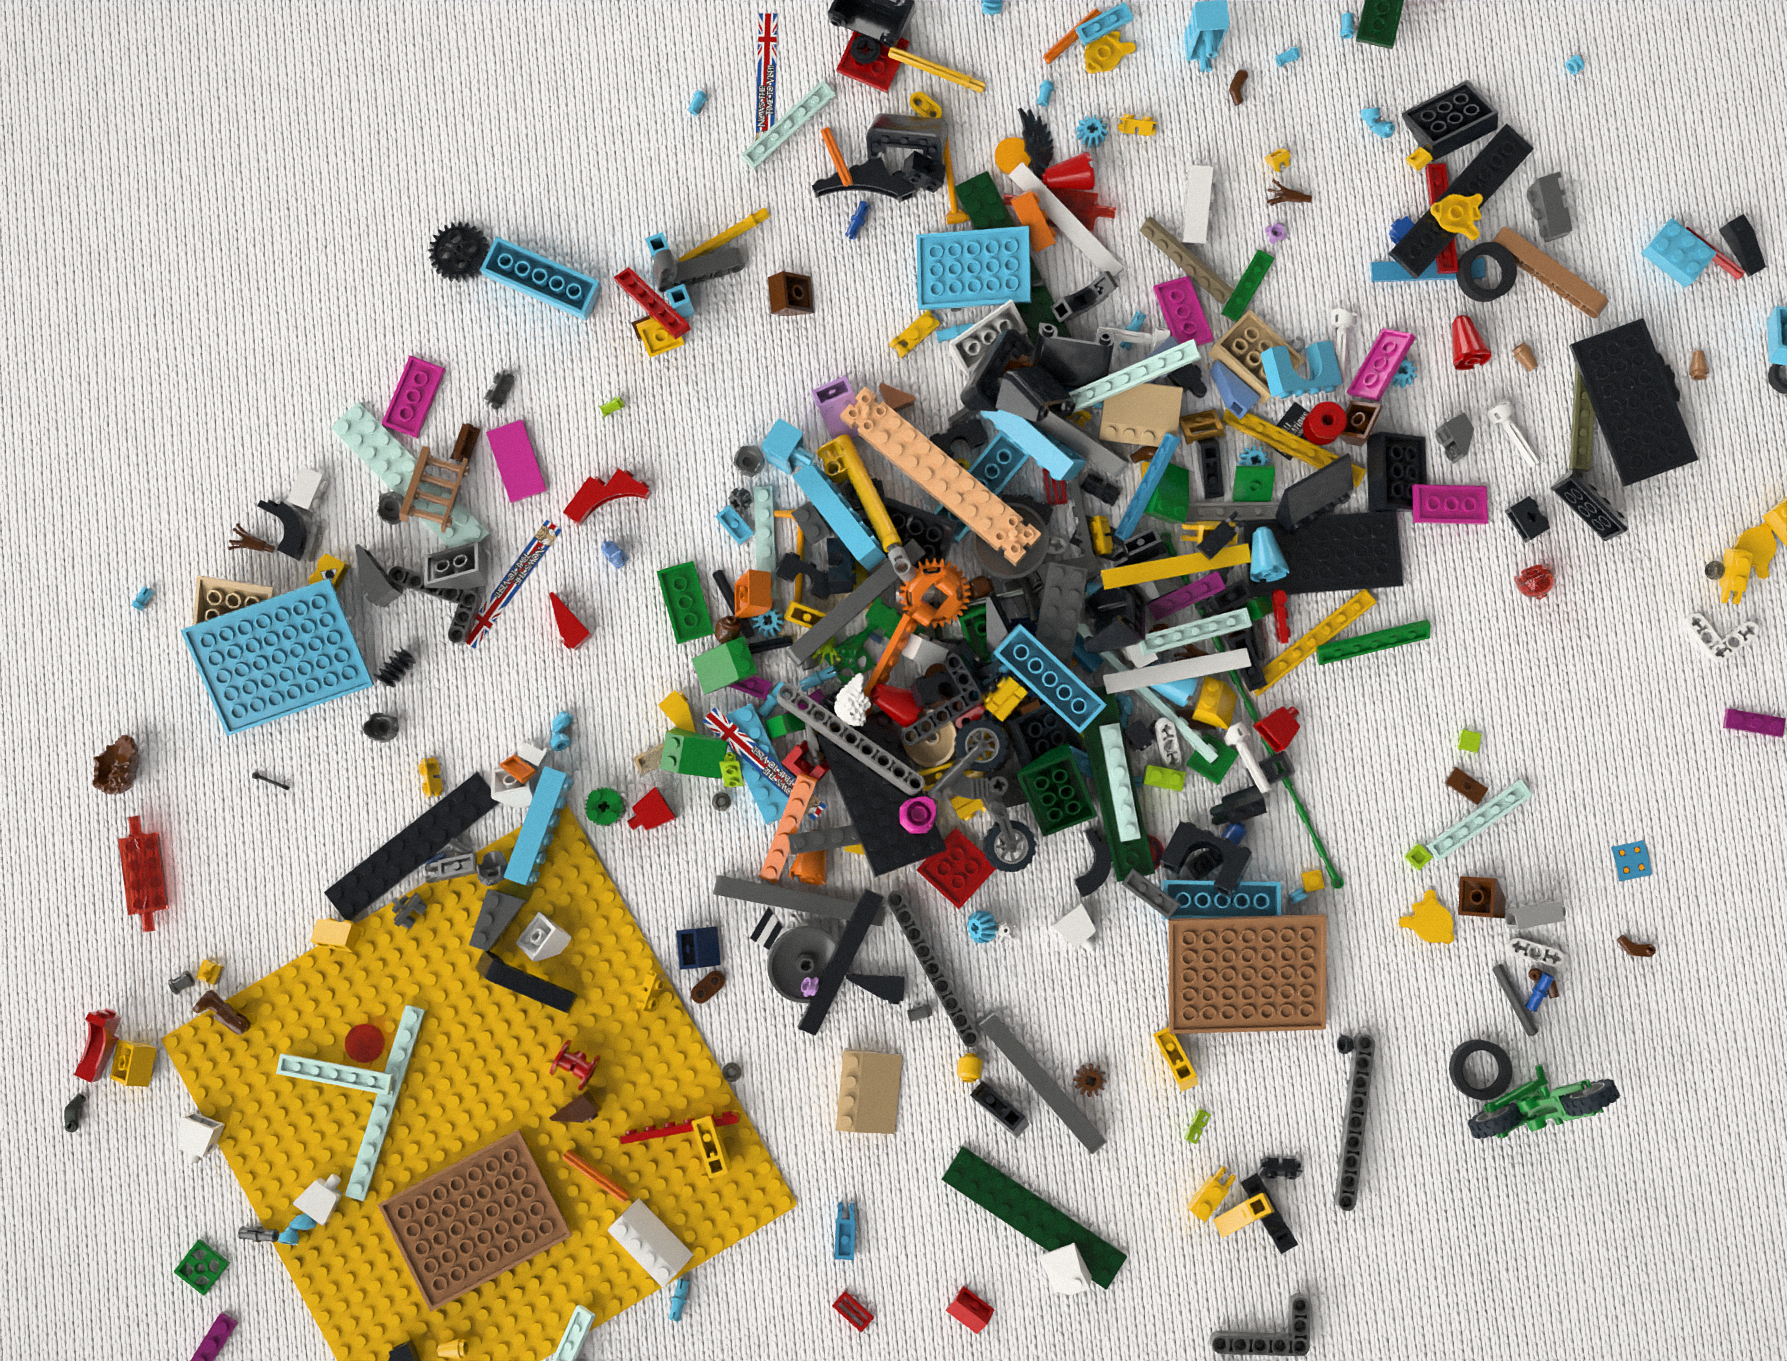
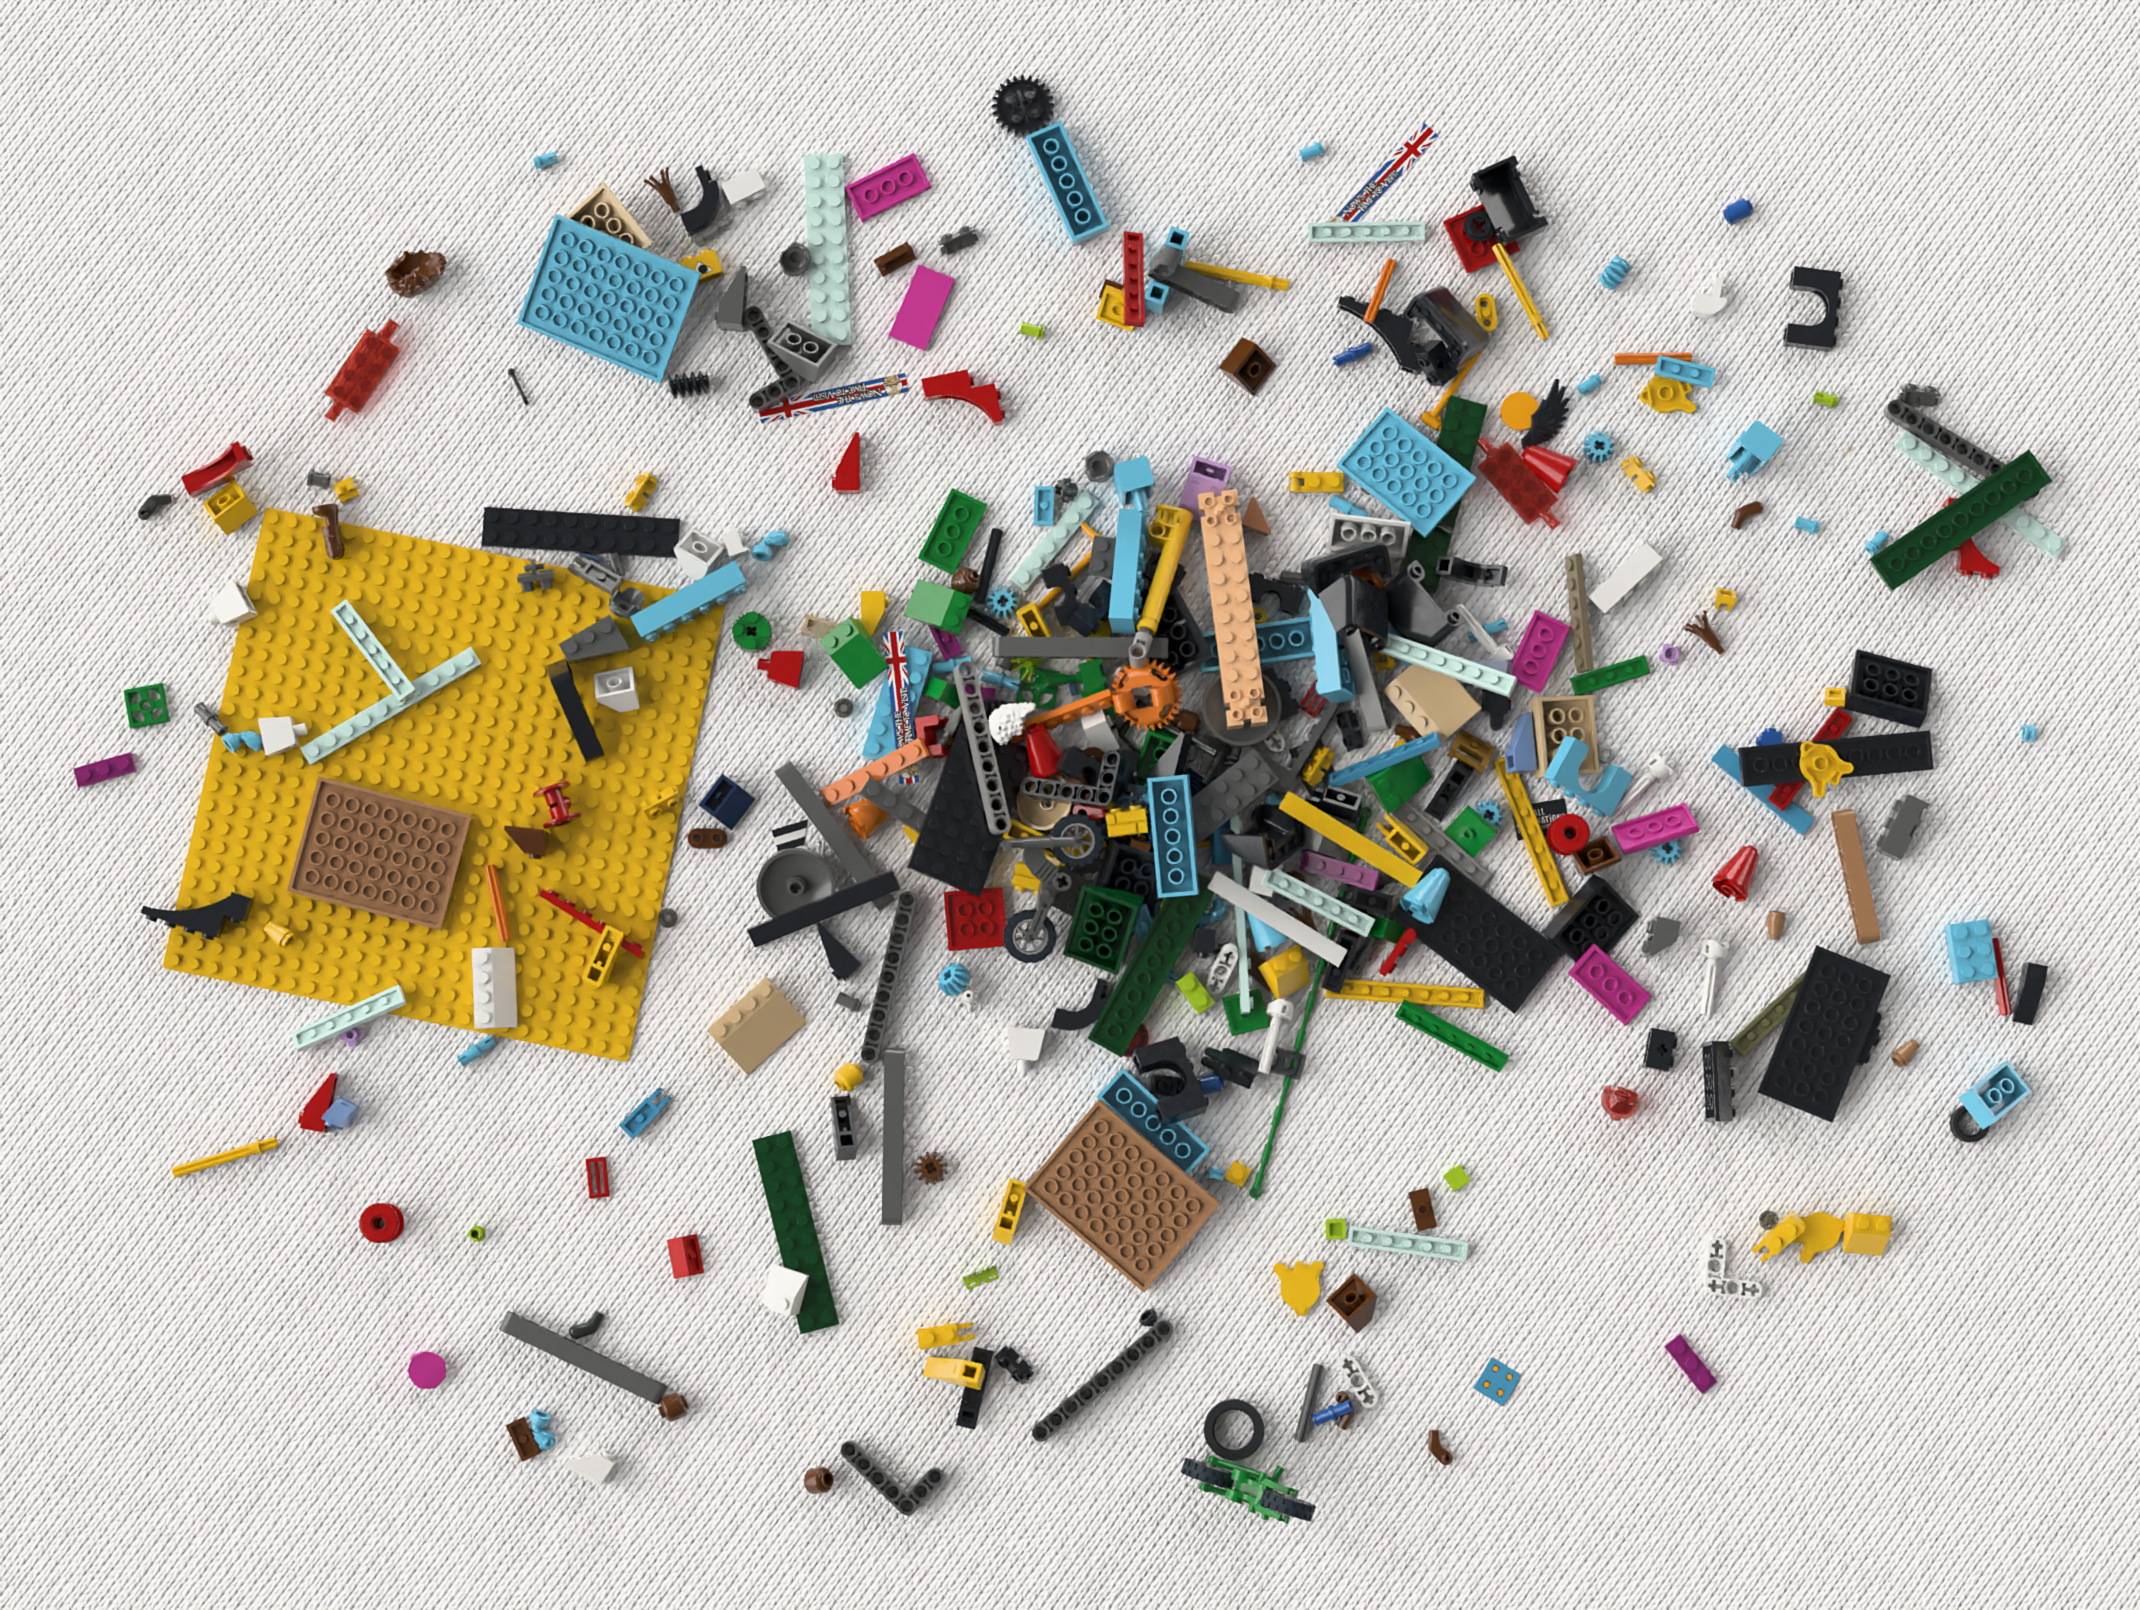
camera: 35 degrees right, 0 degrees up
(335, 934) = (465, 547): yellow brick -> none
(364, 1043) = (414, 647): clear red tile -> none
(381, 727) = (638, 421): dark grey hair -> none
(414, 492) = (838, 255): medium nougat fence -> none
(518, 769) = (712, 545): orange tile -> none
(614, 553) = (931, 450): medium blue animal -> none
(731, 771) = (871, 691): lime hinge -> none
(753, 594) = (1009, 571): orange slope -> none
(809, 986) = (784, 906): lavender plate -> none
(918, 814) = (981, 850): dark pink hat -> none
(1030, 215) = (1488, 476): orange brick -> none
(1066, 221) = (1512, 499): white sticker -> none
(1119, 782) = (1157, 963): light aqua plate -> none
(1151, 894) = (1103, 1069): dark grey tile -> none
(1219, 537) = (1404, 847): black hinge -> none
(1278, 727) = (1318, 1034): red torso -> none
(1316, 494) = (1508, 882): black slope -> none
(1382, 129) = (1829, 648): medium azure arm -> none
(1504, 259) = (1828, 838): black tyre -> none
(1534, 914) = (1382, 1350): light grey brick -> none

